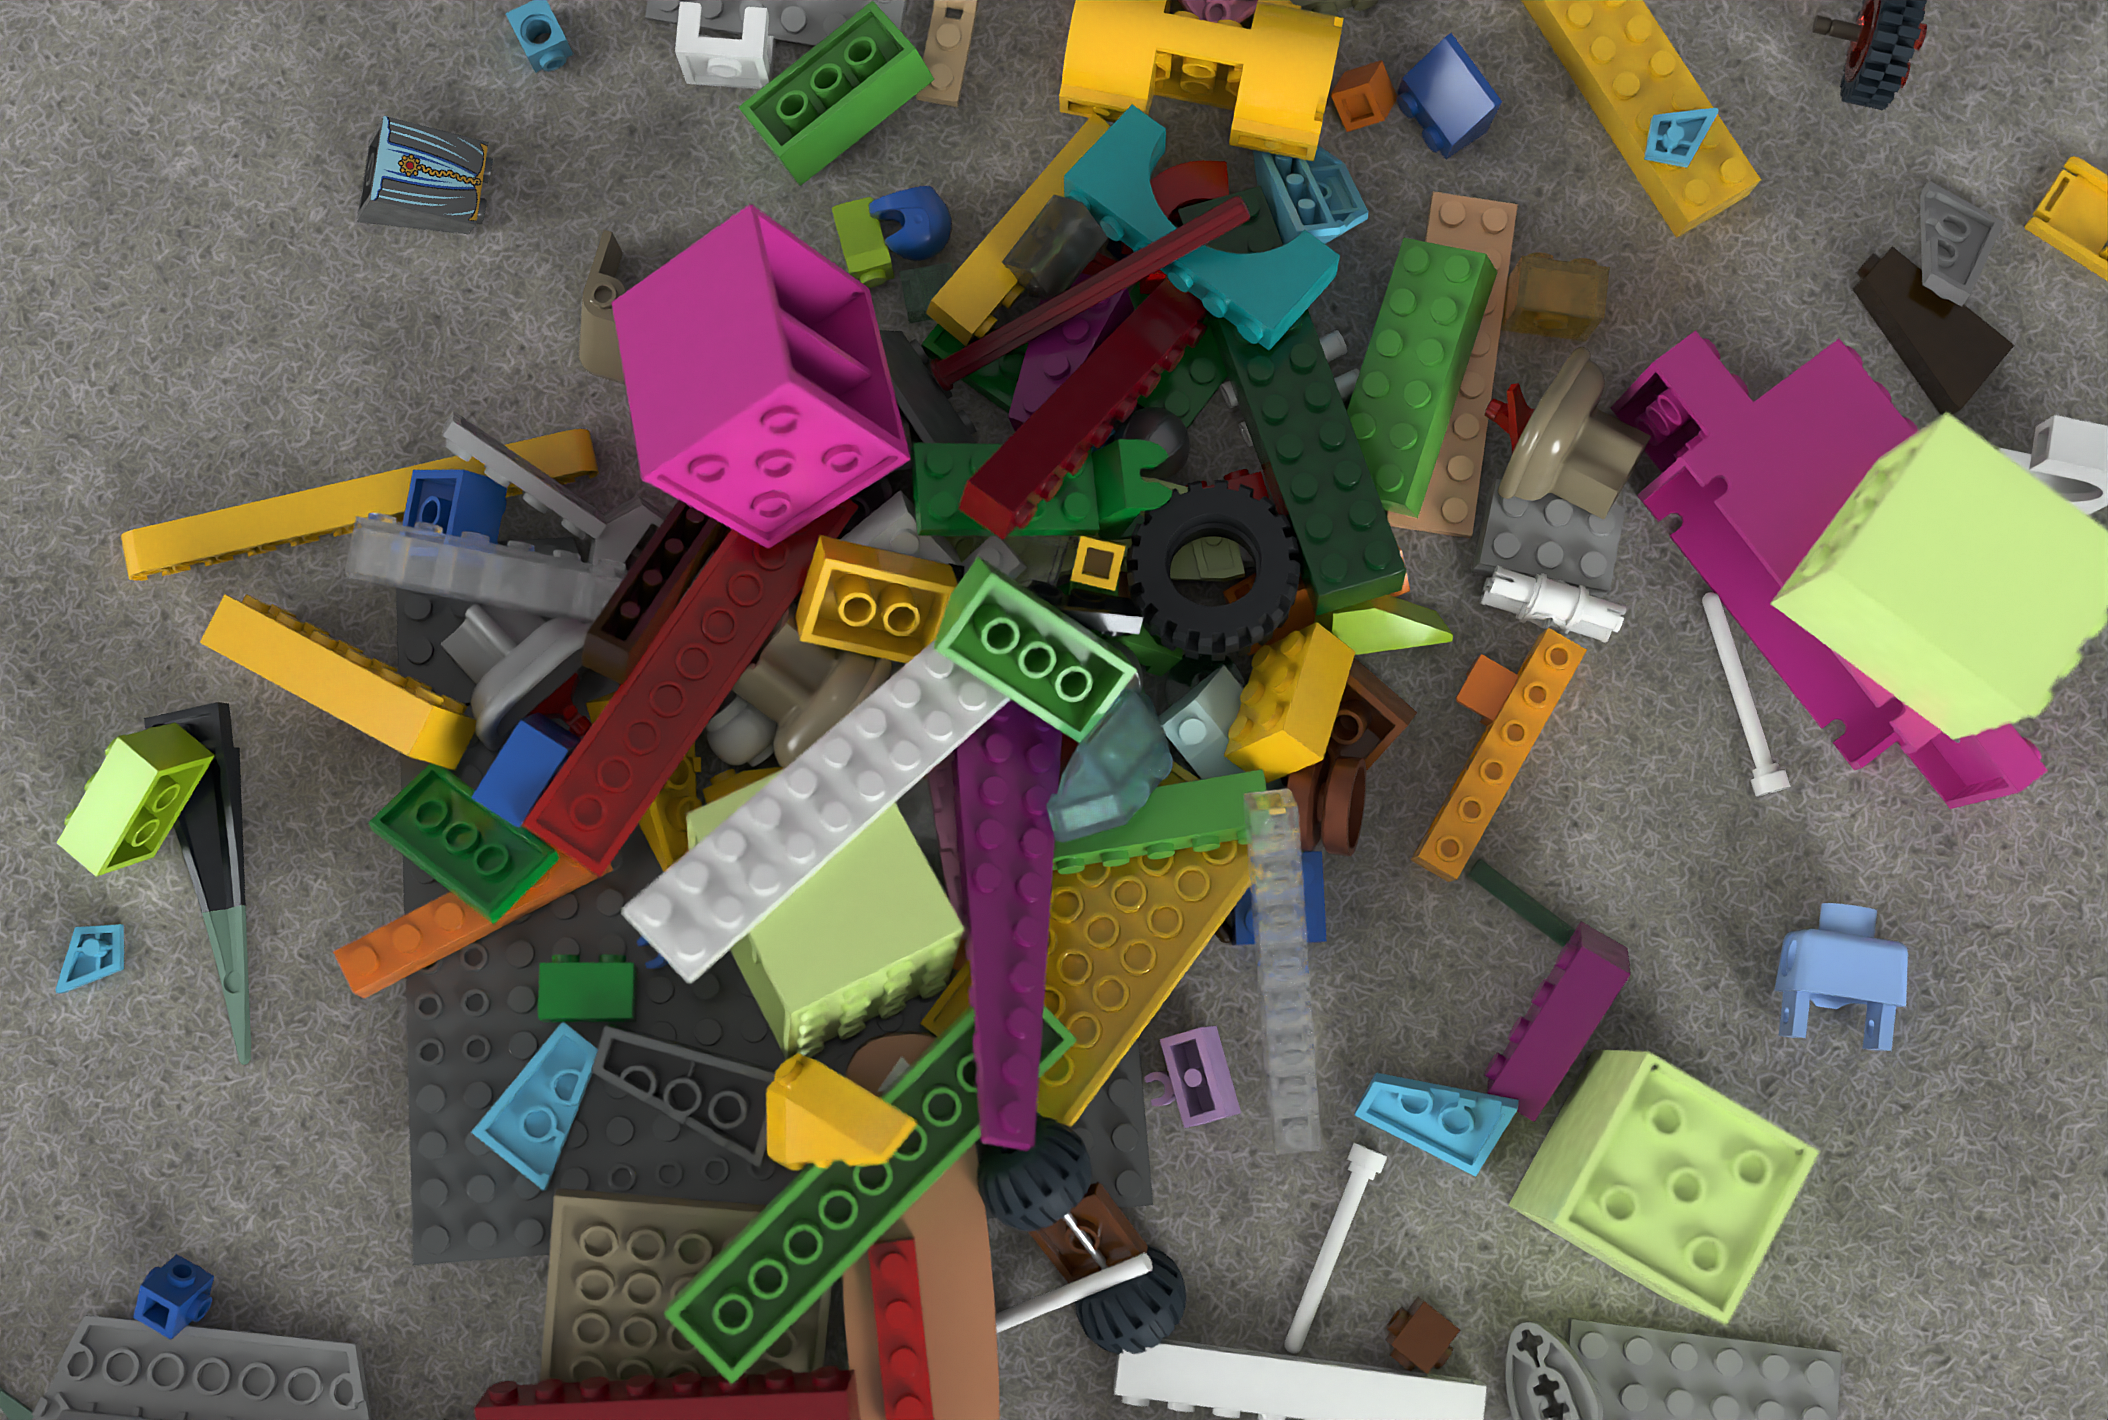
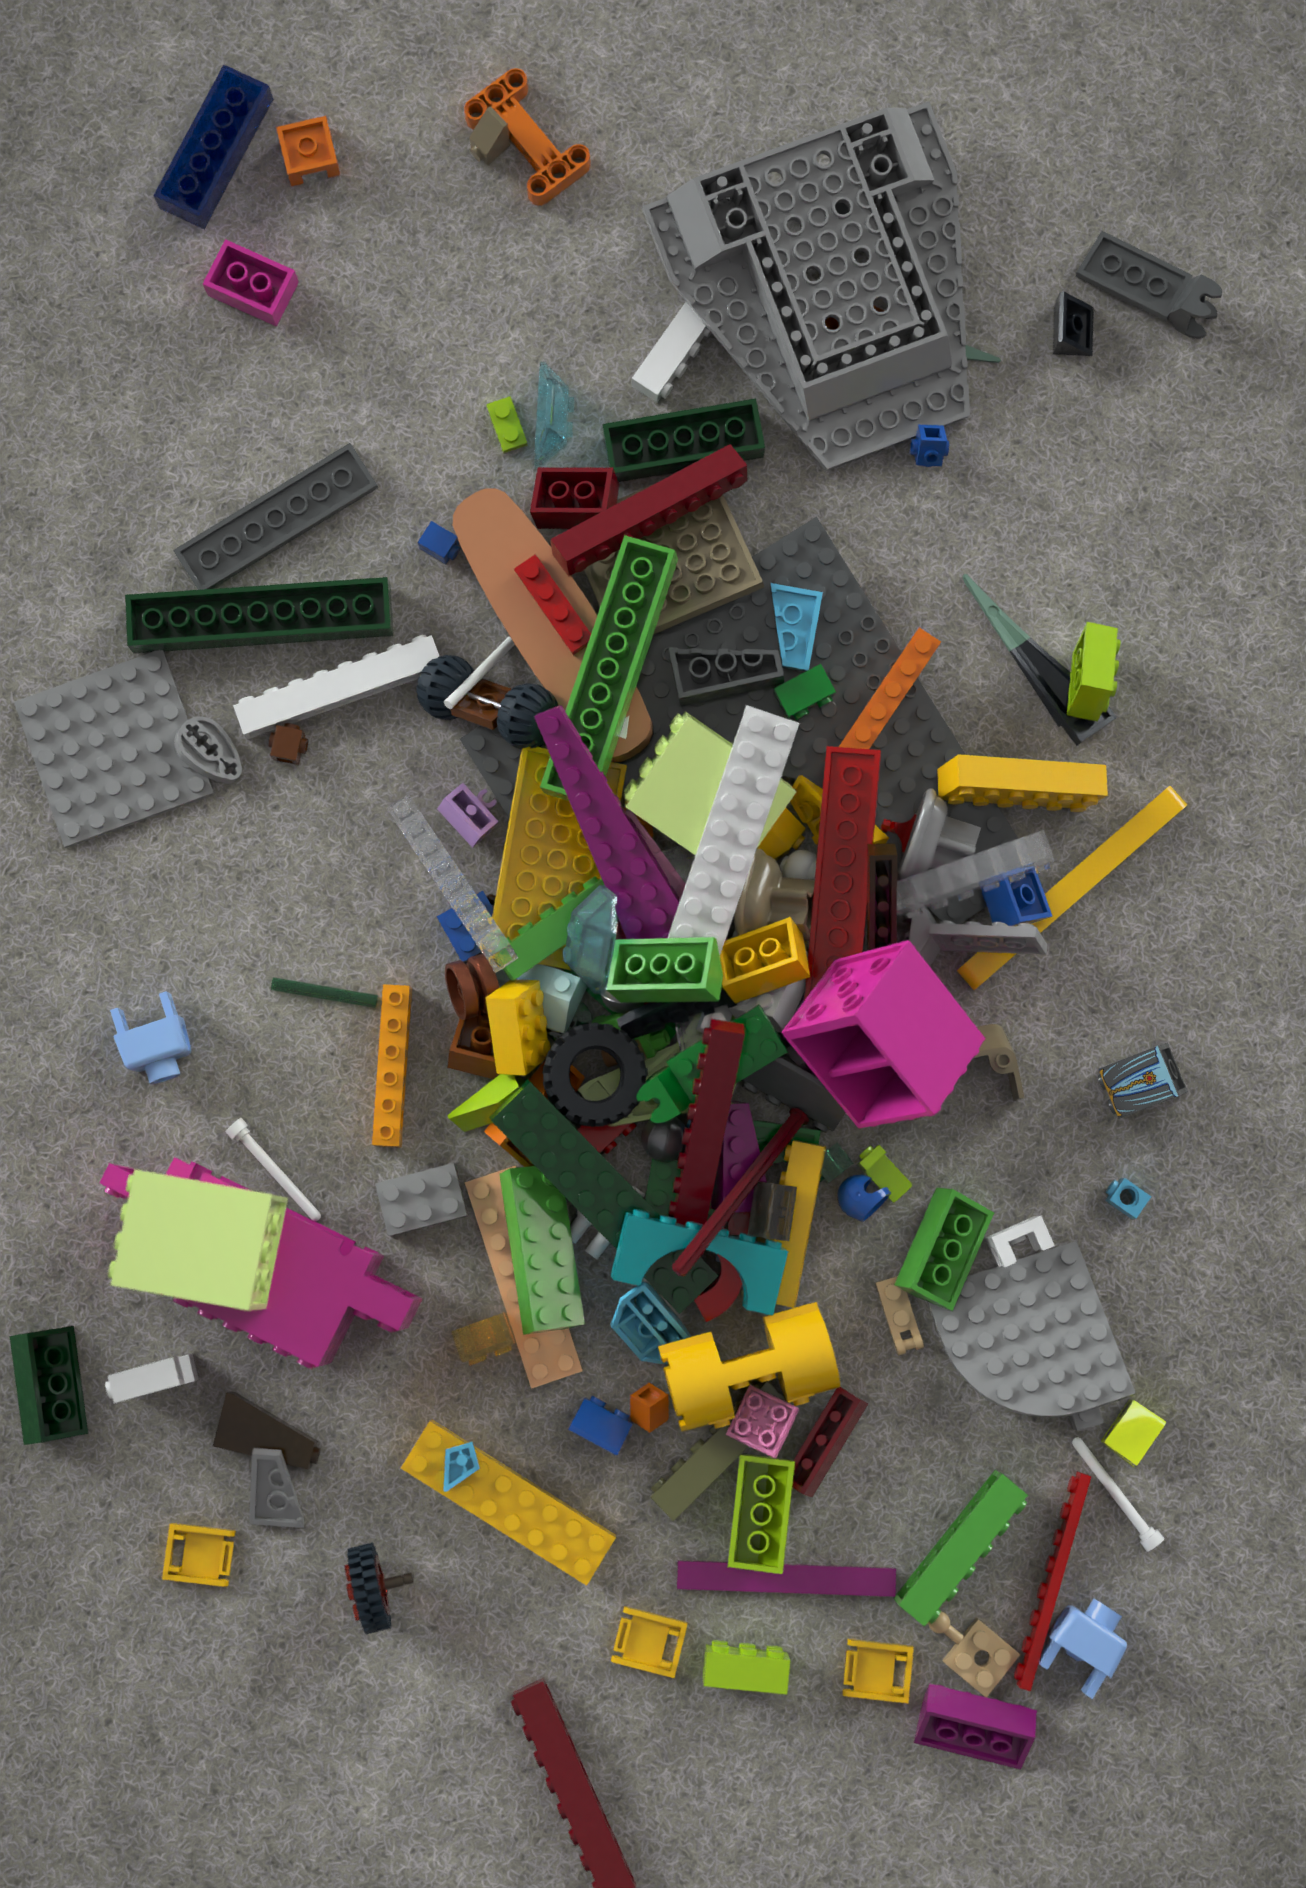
camera: 155 degrees right, 0 degrees up
(92, 956) = (1073, 587): medium azure piece -> none
(463, 842) = (909, 731): green tile -> none
(525, 767) = (896, 785): blue brick -> none
(828, 1118) = (645, 682): yellow wedge -> none
(1098, 562) = (657, 1046): yellow brick -> none
(1364, 1167) = (358, 814): white piece -> none
(1438, 1118) = (332, 857): medium azure wing -> none
(1486, 688) = (416, 1098): orange panel -> none
(1552, 604) = (402, 1162): white pin -> none
(1559, 1020) = (293, 940): magenta wedge -> none
(1567, 441) = (437, 1254): dark tan piece -> none
(1664, 1180) = (204, 871): yellowish green piece -> none

